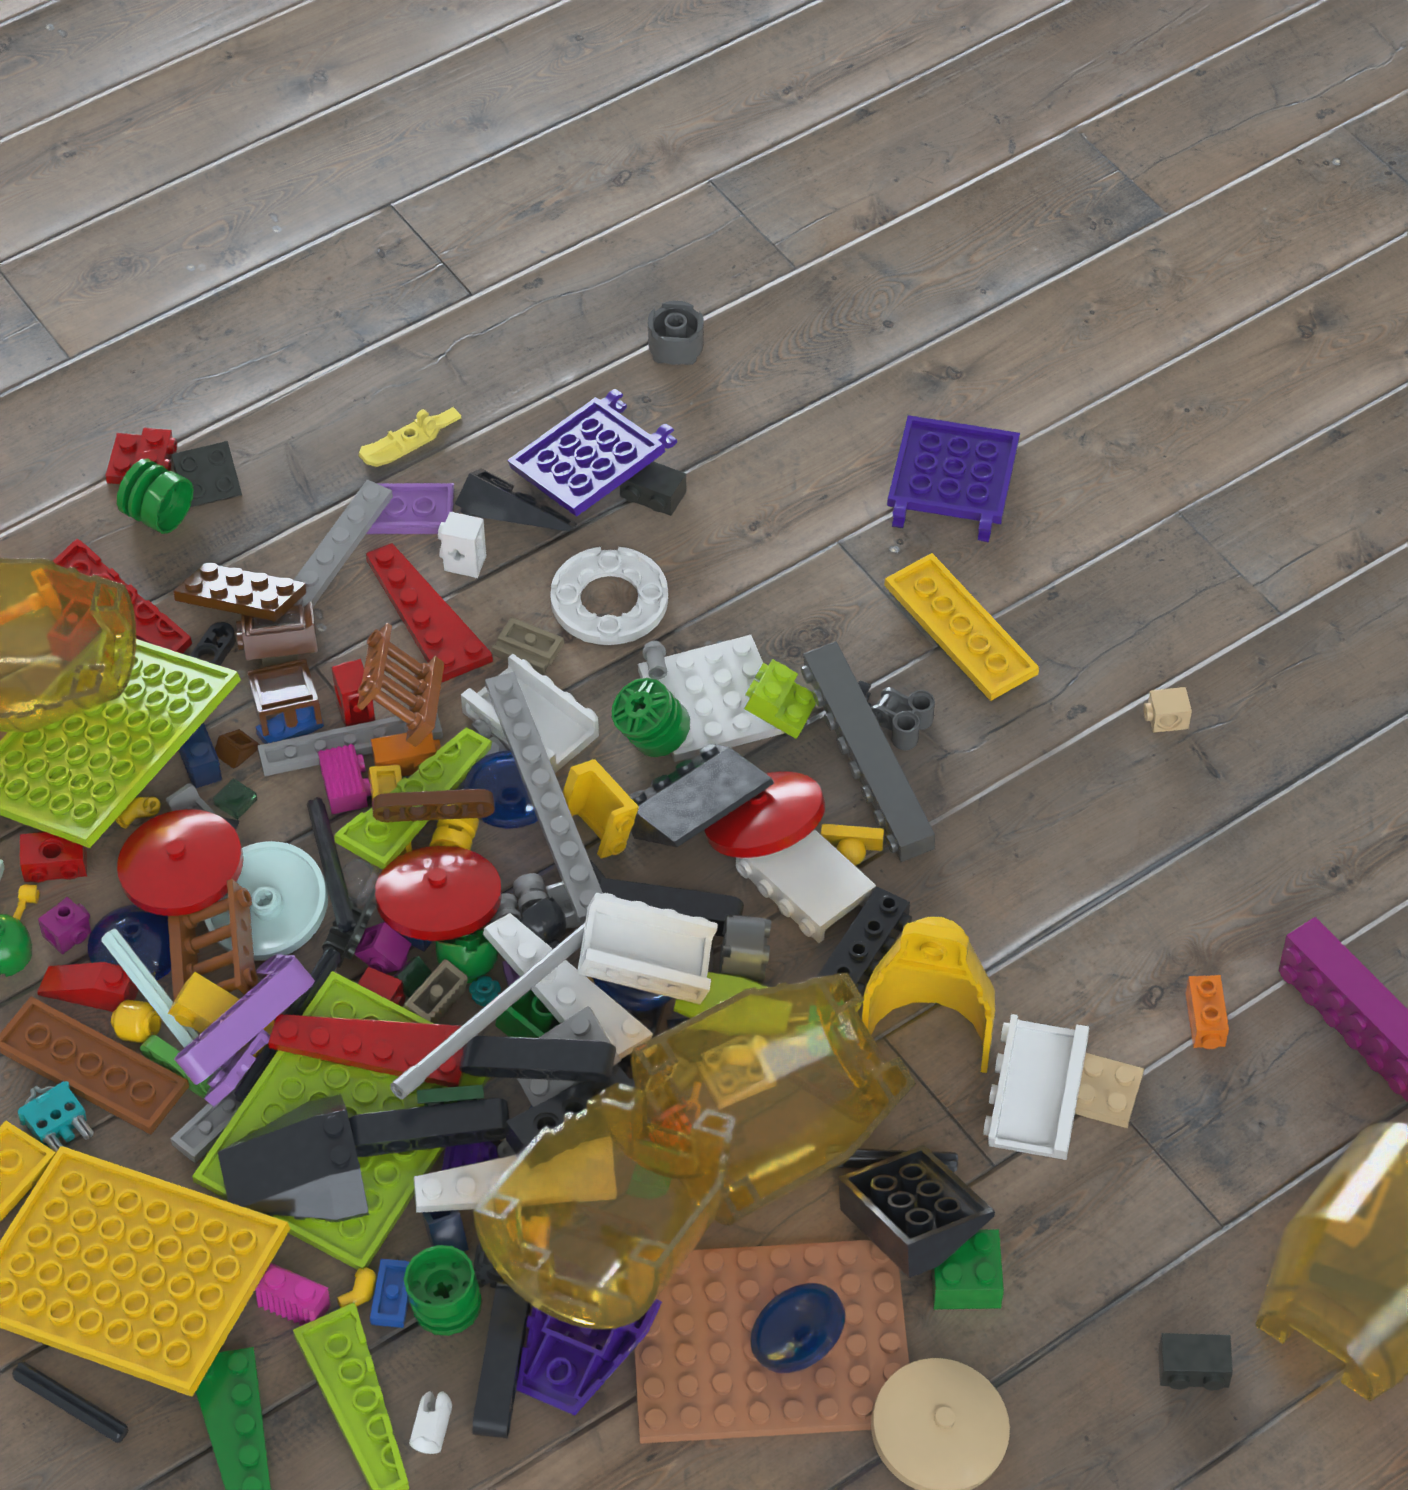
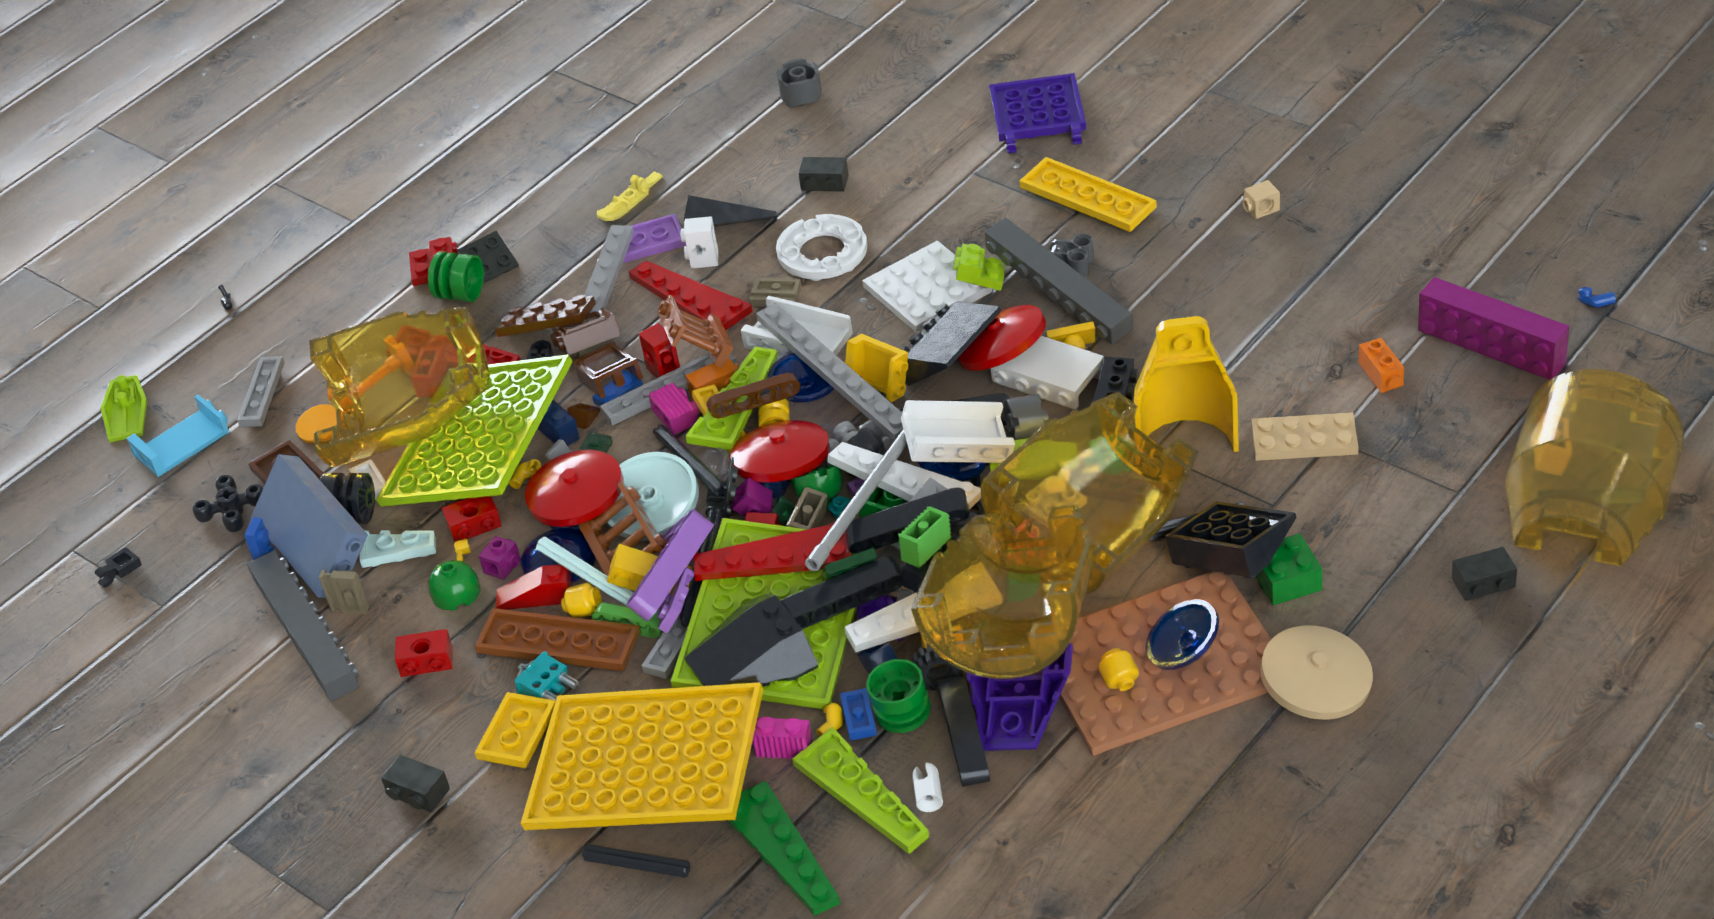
camera: 10 degrees left, 10 degrees down
(543, 1095) = (924, 536): none -> bright green brick
(590, 454) = (770, 165): plate -> none
(650, 717) = (889, 302): green wheel -> none
(654, 654) = (873, 268): light grey pin -> none
(707, 1346) = (1118, 669): none -> yellow head
(1036, 1088) = (1283, 443): white panel -> none

